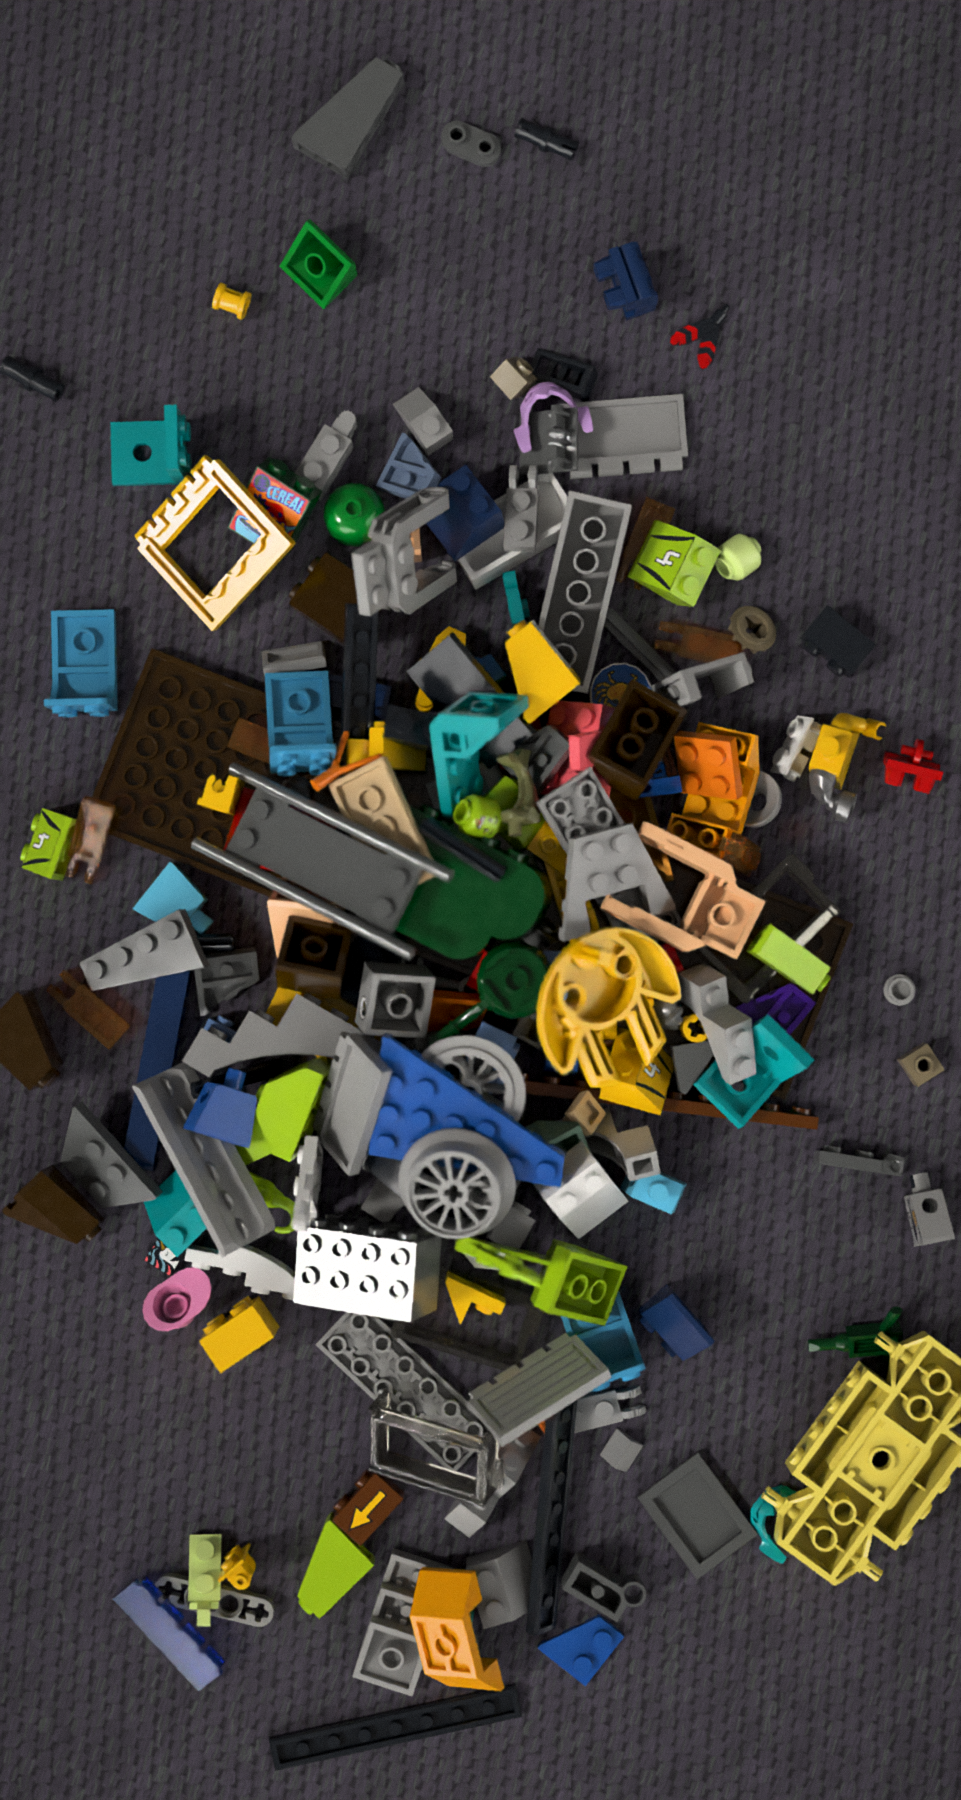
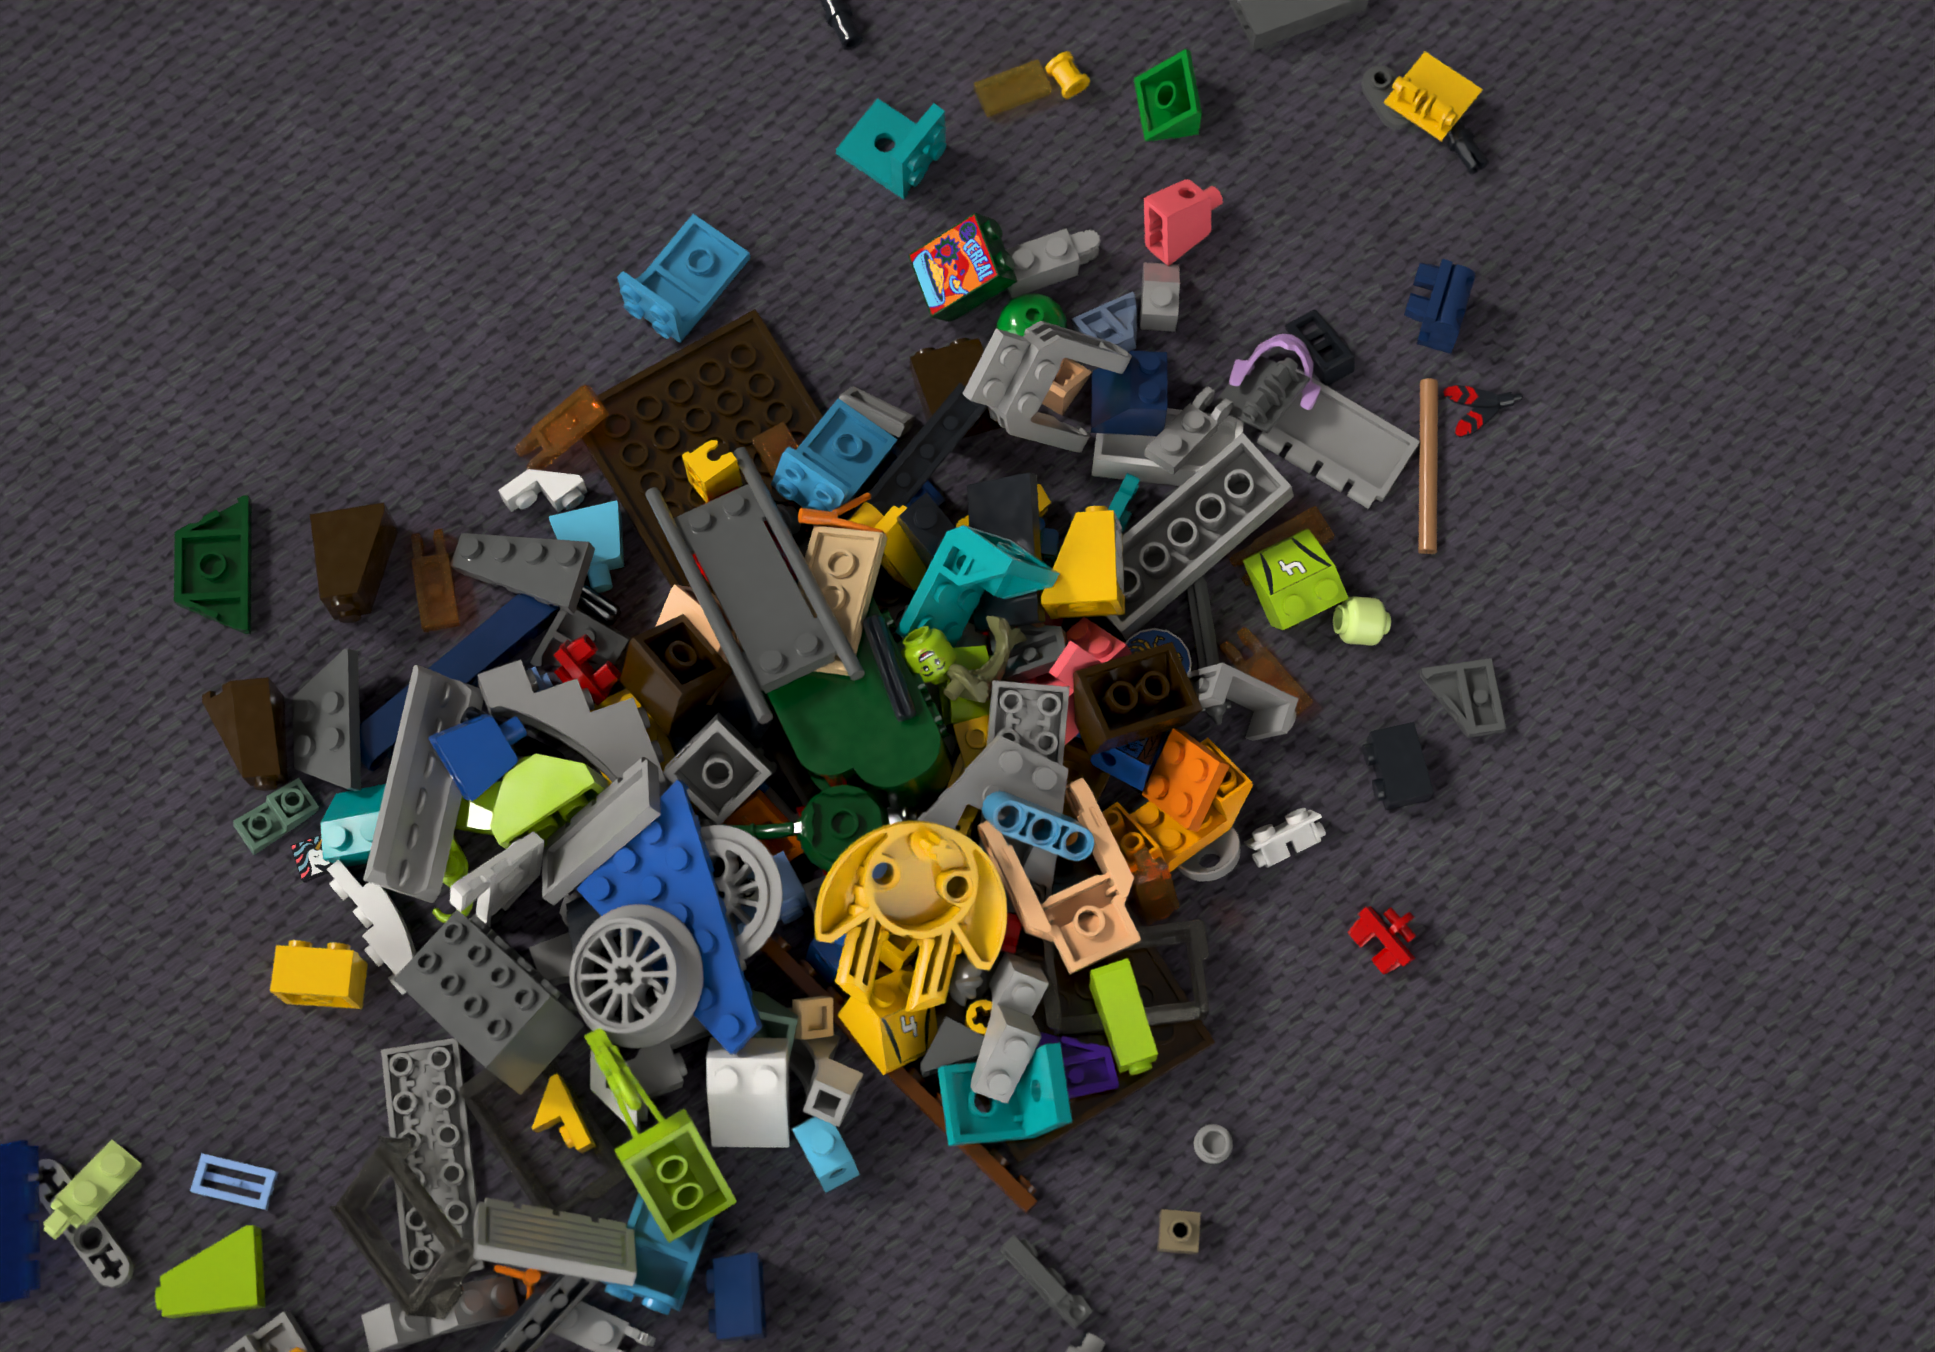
camera: 40 degrees right, 15 degrees down
(49, 844) = (521, 408): lime slope -> none
(117, 1247) = (277, 816): none -> sand green slope
(122, 882) = (559, 488): none -> white slope
(174, 517) = (903, 299): hinge -> none
(177, 1300) = (288, 903): bright pink piece -> none
(200, 340) = (1012, 88): none -> clear yellow plate
(238, 1567) = (130, 1202): yellow hinge -> none
(240, 999) = (574, 665): none -> red hips
(315, 1486) = (266, 1190): none -> light blue tile
(367, 1505) = (300, 1244): reddish brown brick -> none
(396, 354) = (1178, 219): none -> coral torso
(505, 121) = (1432, 96): none -> yellow hinge
(514, 377) = (1272, 314): plate -> none
(661, 875) = (1051, 836): none -> dark azure beam
(700, 407) = (1428, 466): none -> medium nougat piece
(750, 618) = (1333, 687): dark tan gear -> none
(832, 760) = (1310, 870): torso -> none
(847, 555) = (1468, 695): none -> dark grey wing

